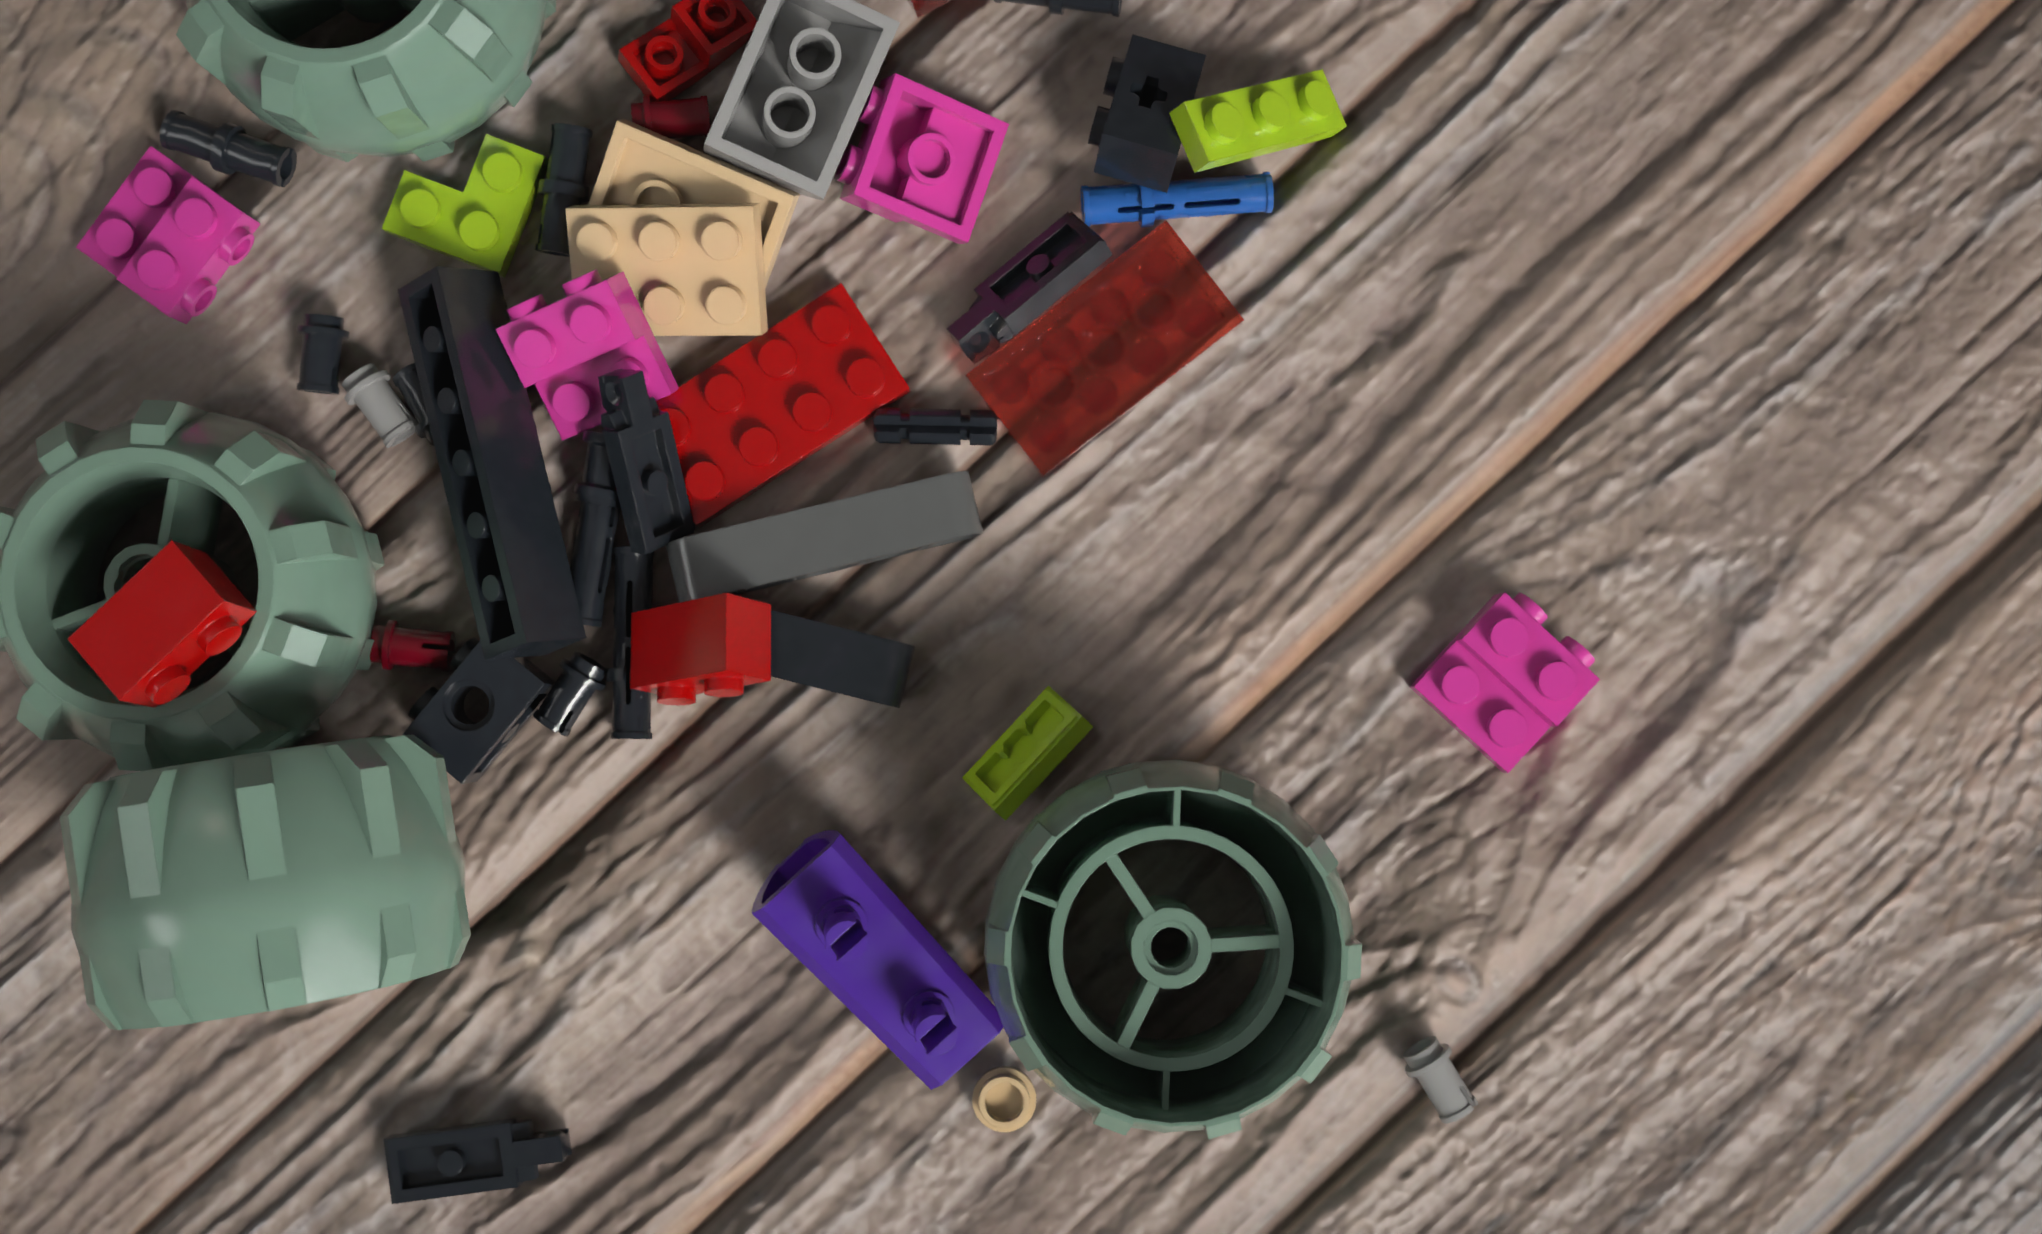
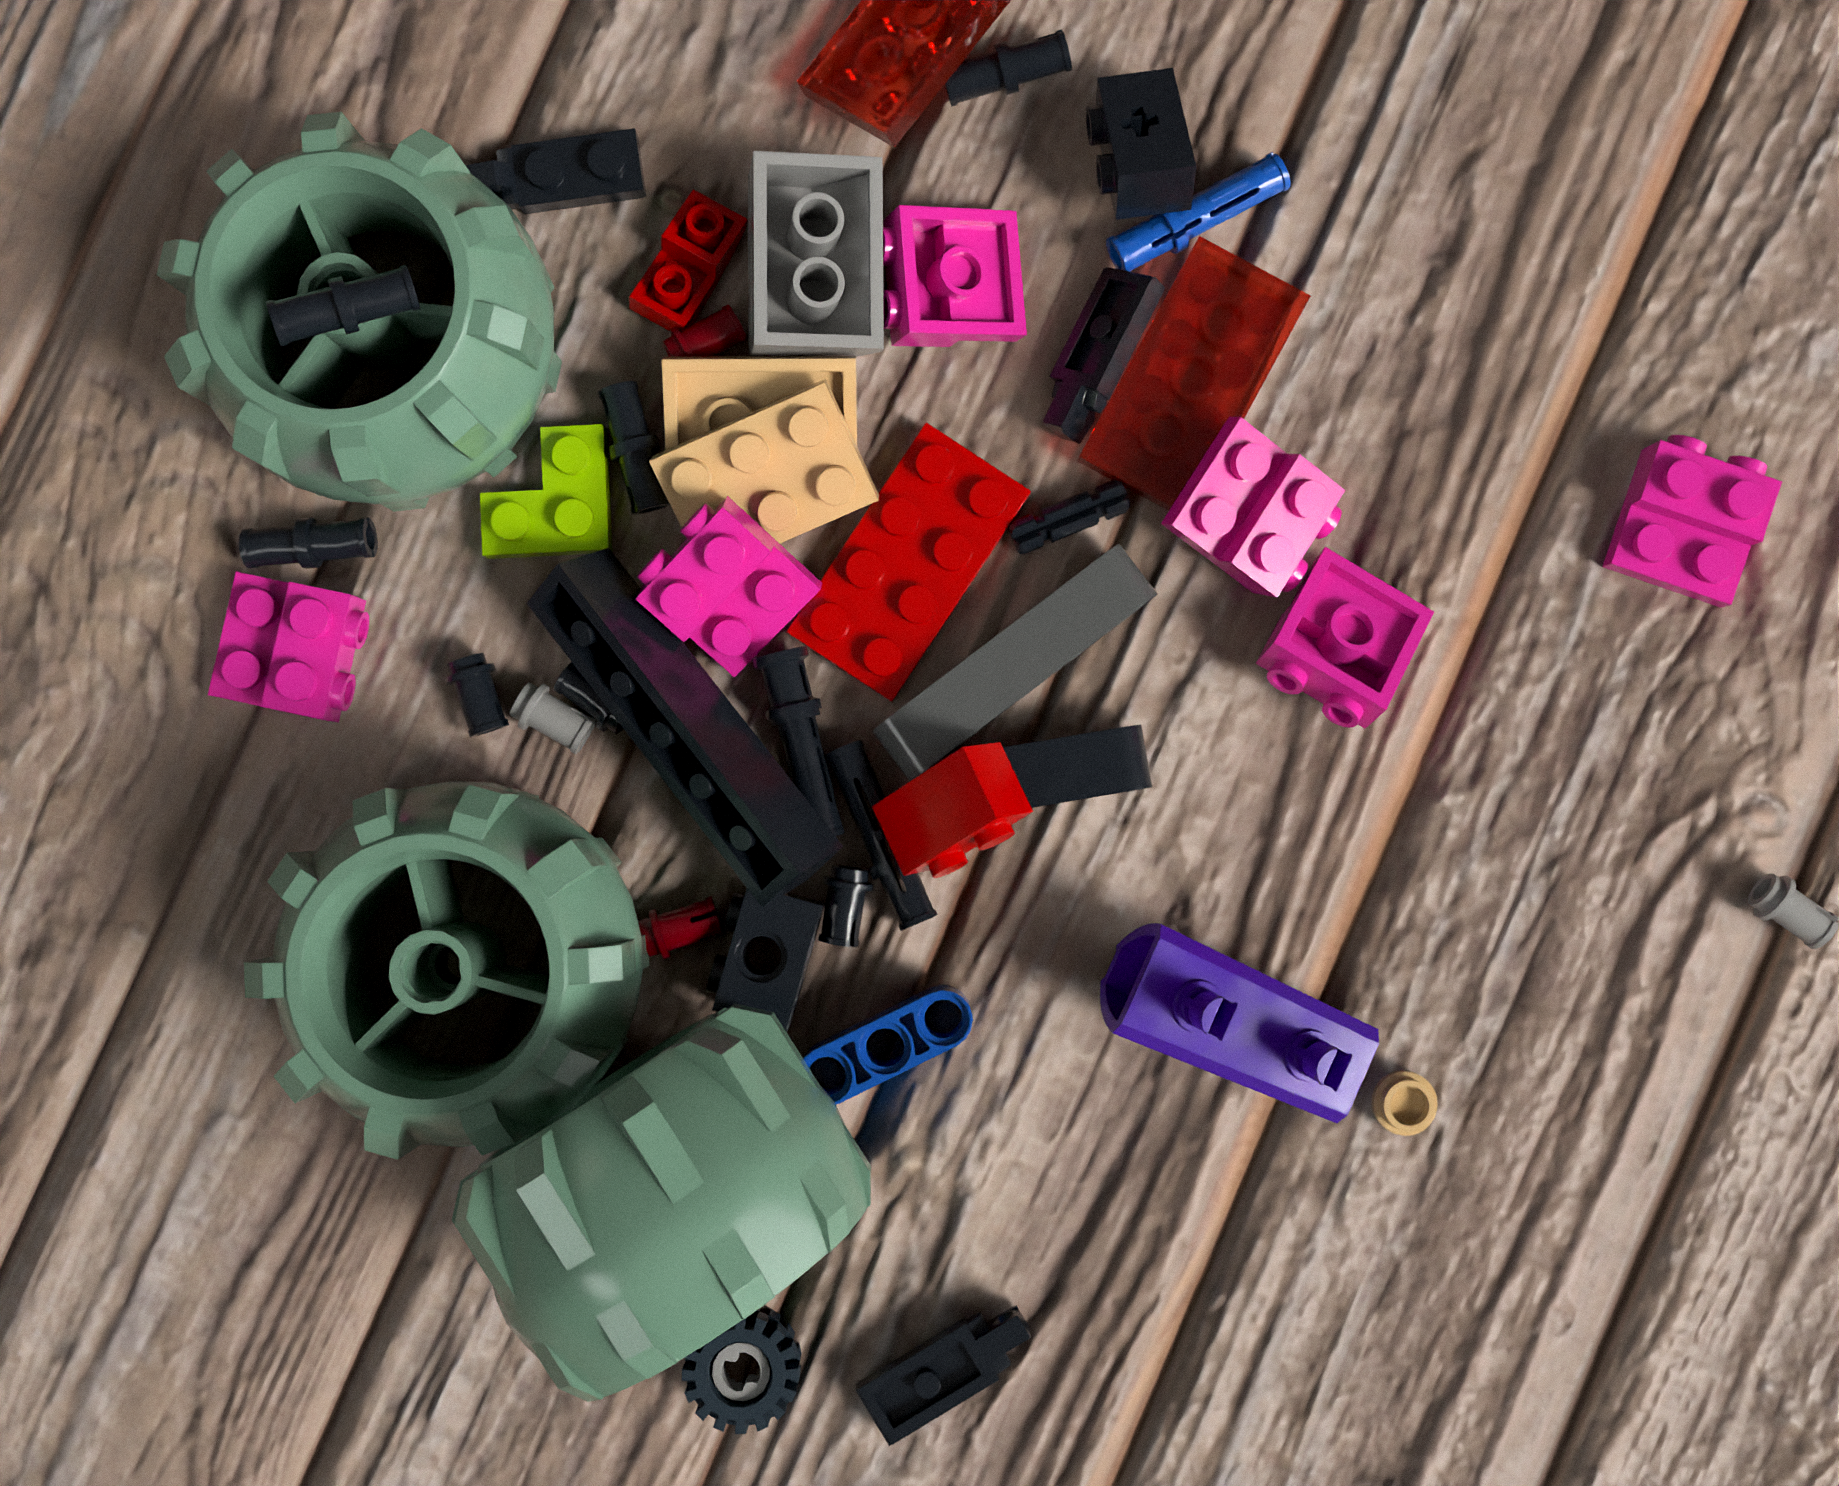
camera: 20 degrees left, 0 degrees up
(163, 626) = (472, 1002): red brick -> none
(282, 1042) = (761, 1395): none -> black bush
(581, 828) = (909, 1021): none -> blue beam
(643, 463) = (823, 662): black hinge -> none
(1027, 752) = (1287, 776): lime plate -> none
(1104, 493) = (1255, 509): none -> plate
(1134, 650) = (1344, 641): none -> dark pink plate
(1255, 1051) = (1643, 918): sand green wheel -> none
(1257, 120) = (1246, 106): lime plate -> none

